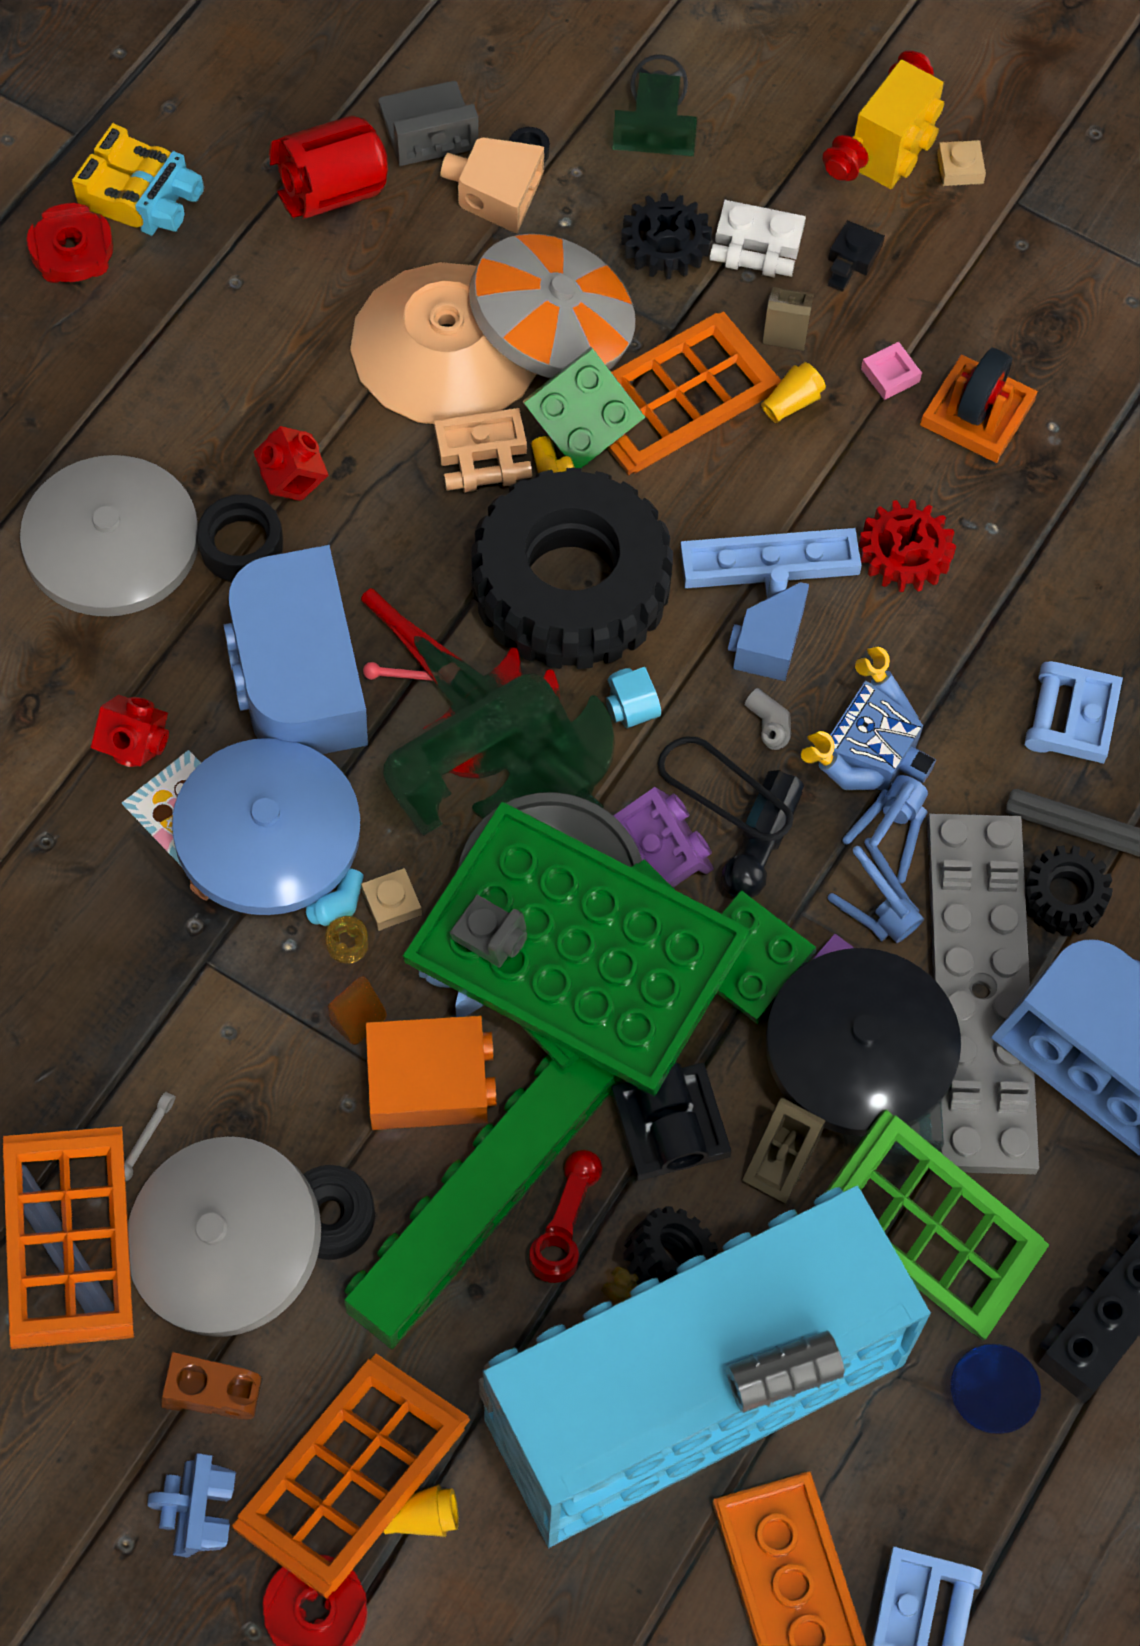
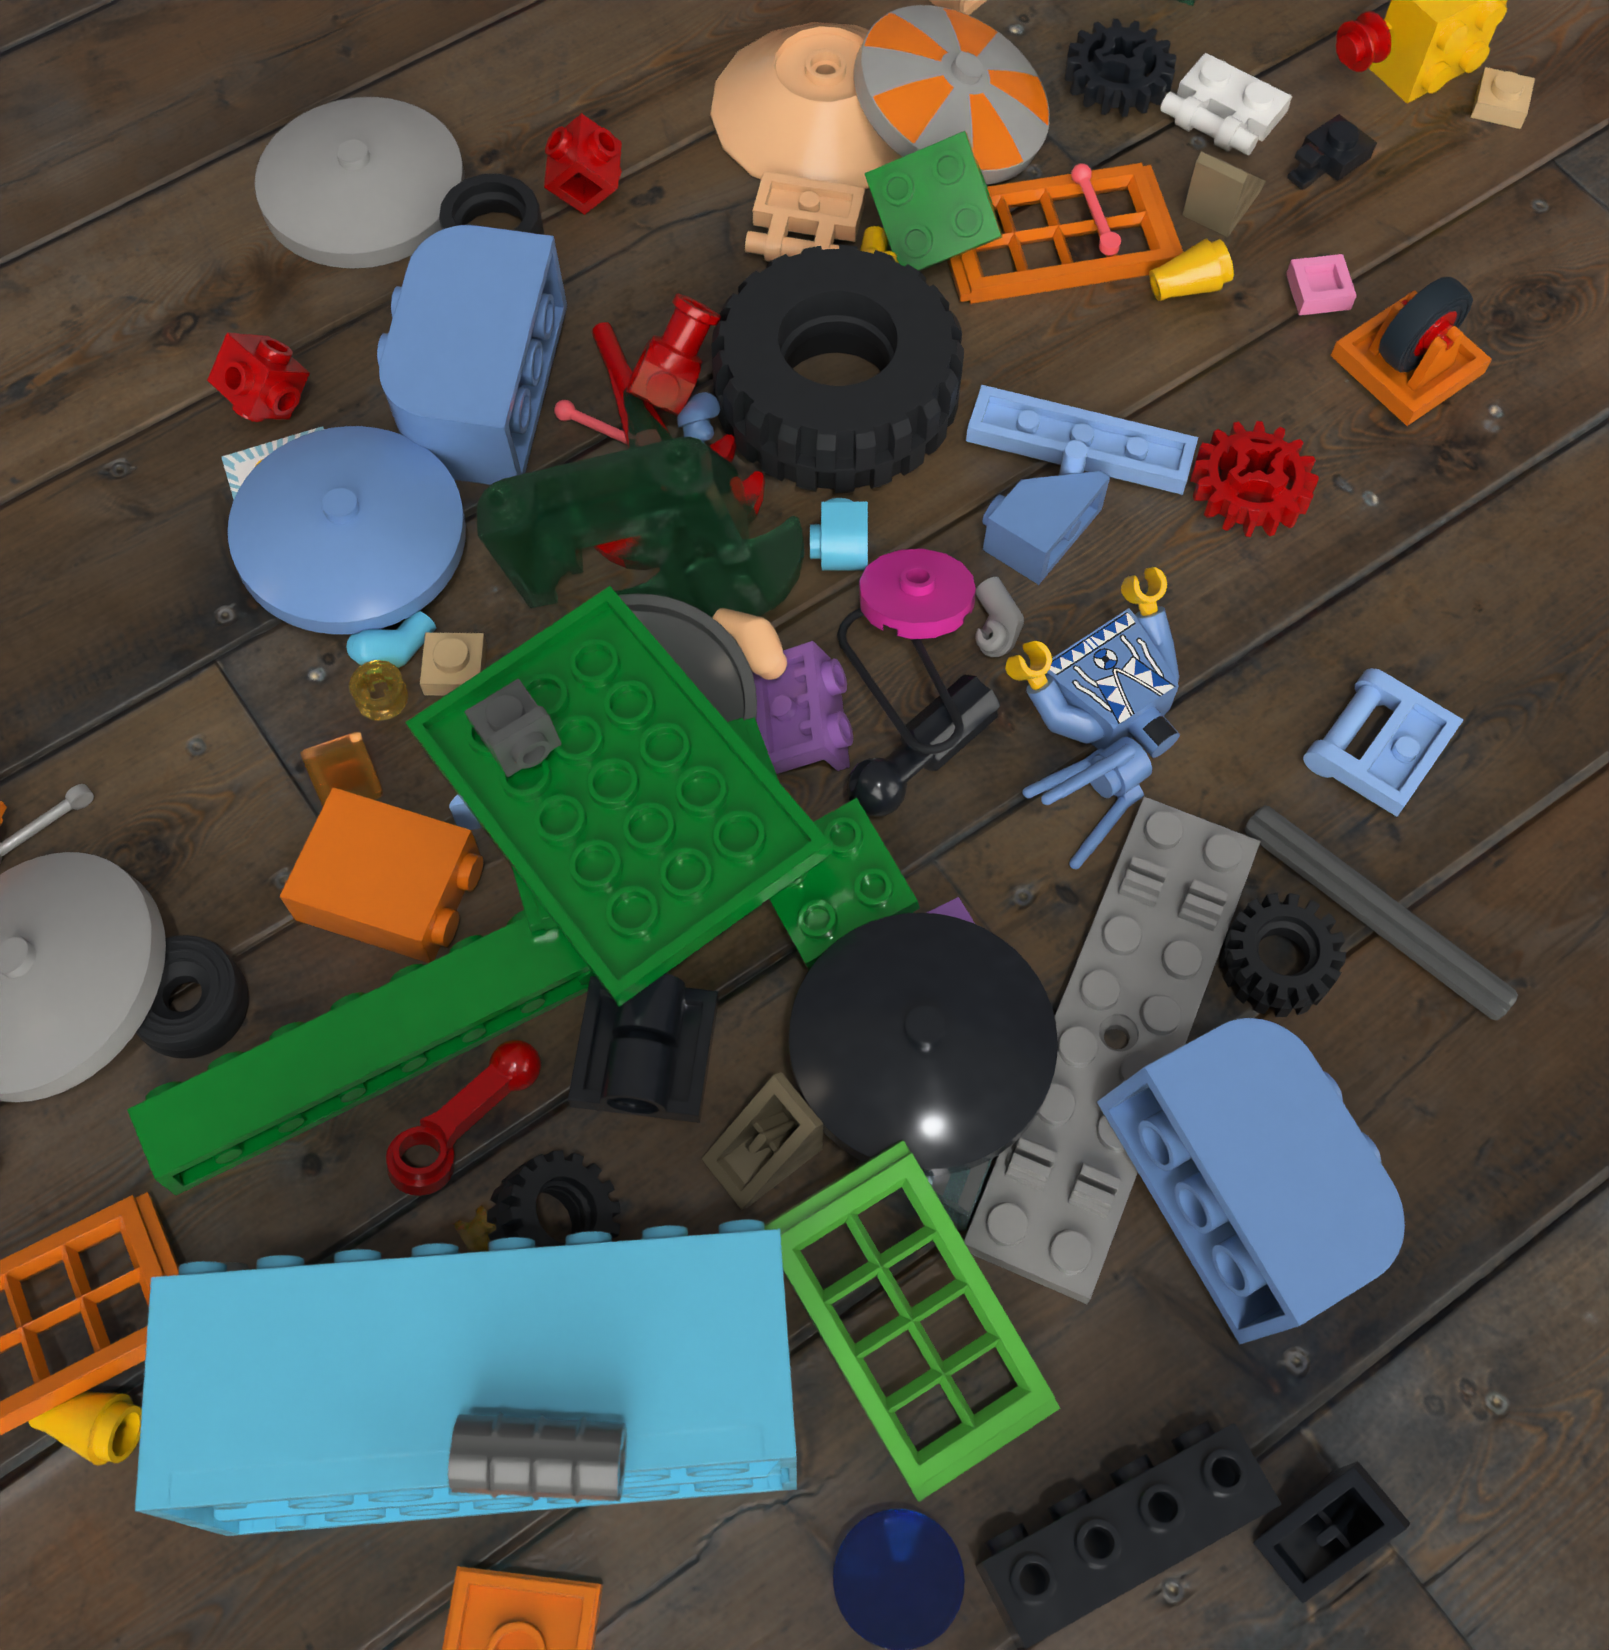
camera: 25 degrees right, 0 degrees up
(447, 612) = (670, 362): none -> red connector
(484, 642) = (697, 414): none -> medium blue arm
(615, 800) = (757, 641): none -> light nougat arm
(706, 721) = (917, 593): none -> dark pink plate
(722, 389) = (1109, 241): none -> coral hinge
(897, 913) = (1047, 904): medium blue plant -> none

